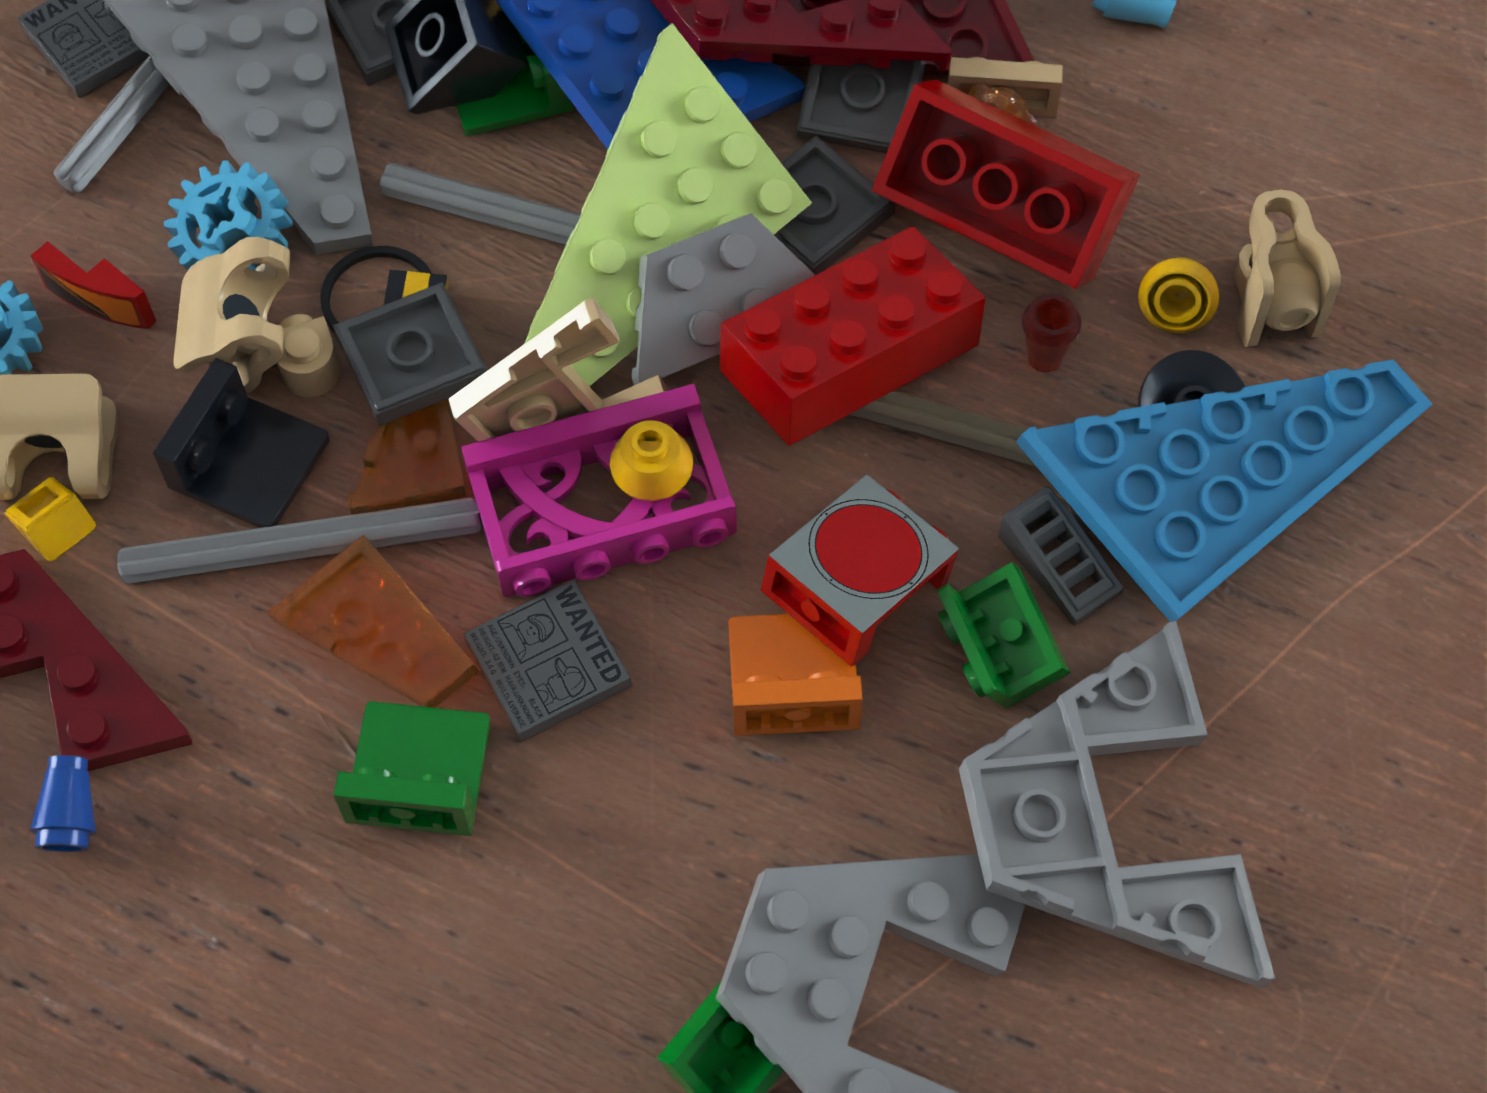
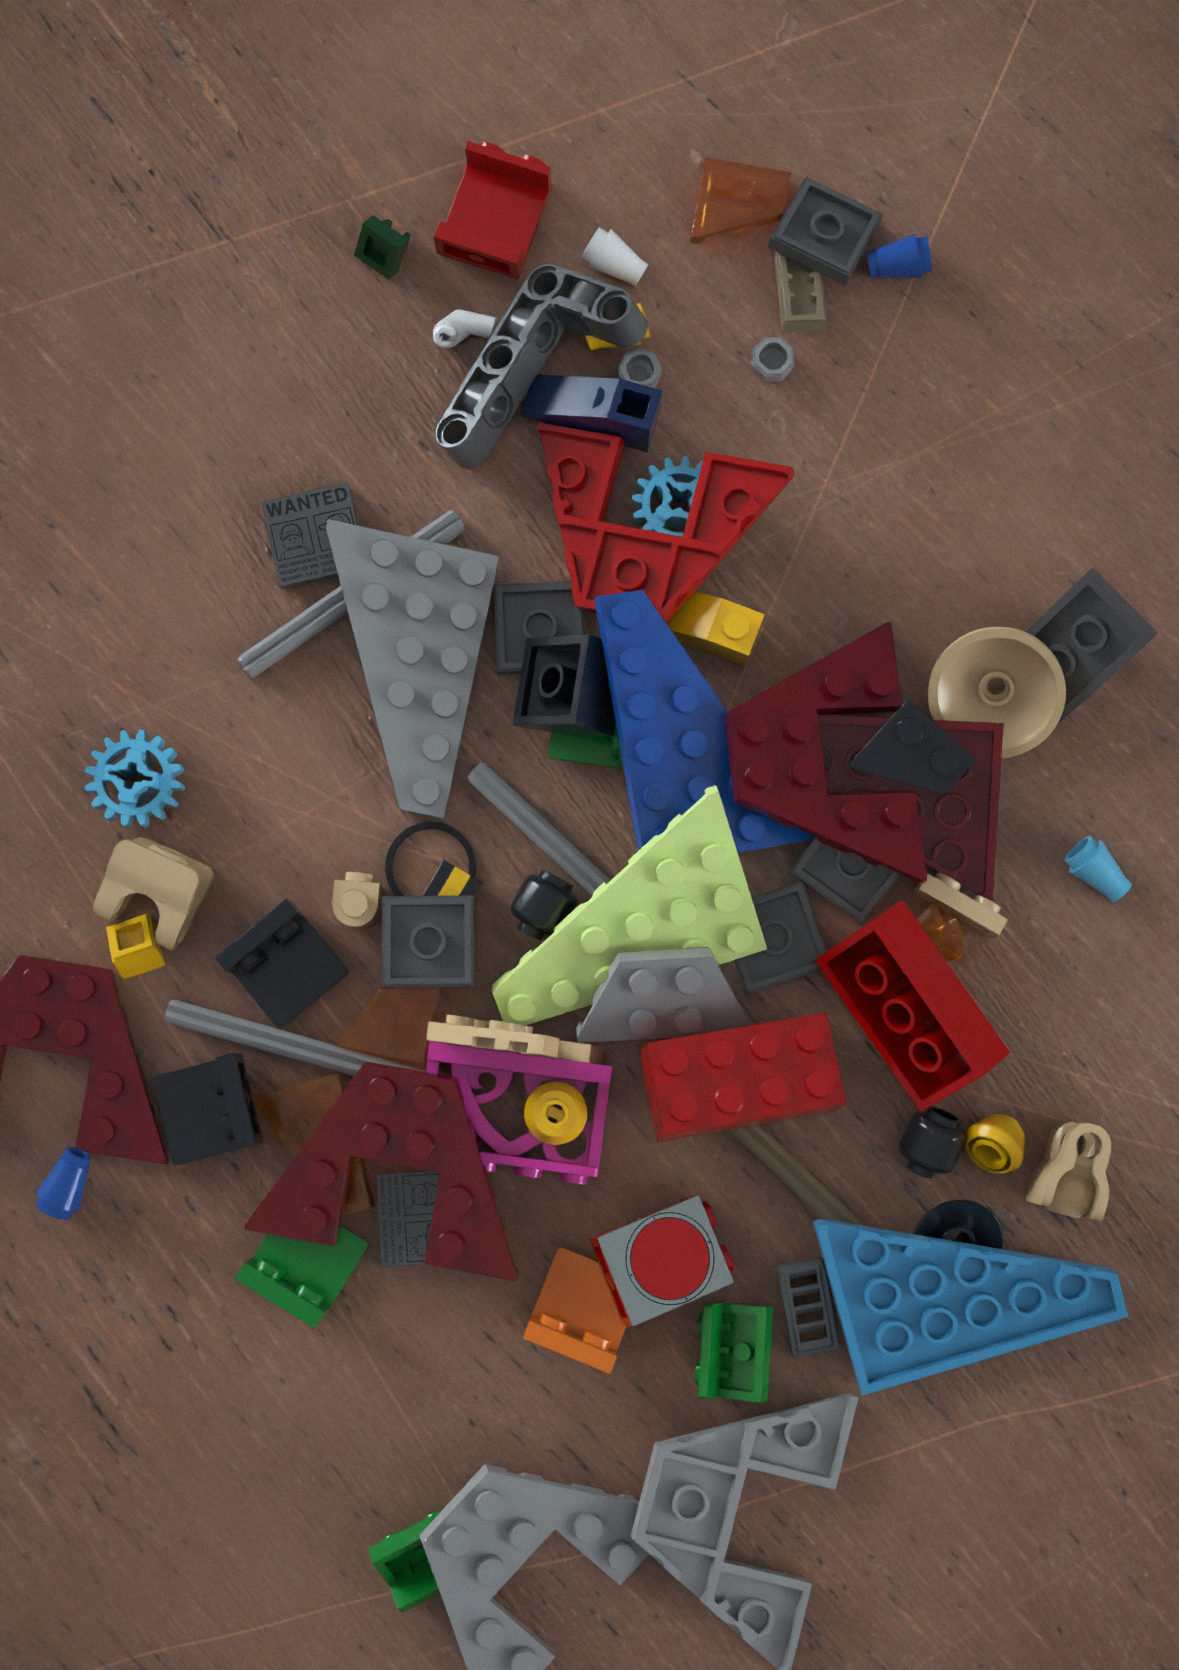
camera: 25 degrees right, 20 degrees up
(99, 292) = (237, 782): red slope -> none
(220, 646) = (208, 1109): none -> black bracket
(225, 213) = (358, 757): medium azure gear -> none
(227, 309) = (308, 857): tan piece -> none
(465, 536) = (403, 1121): none -> dark red wing
(526, 263) = (542, 903): none -> black head
(1049, 330) = (897, 1138): clear red cone -> none
(1110, 321) = (932, 1142): none -> black head

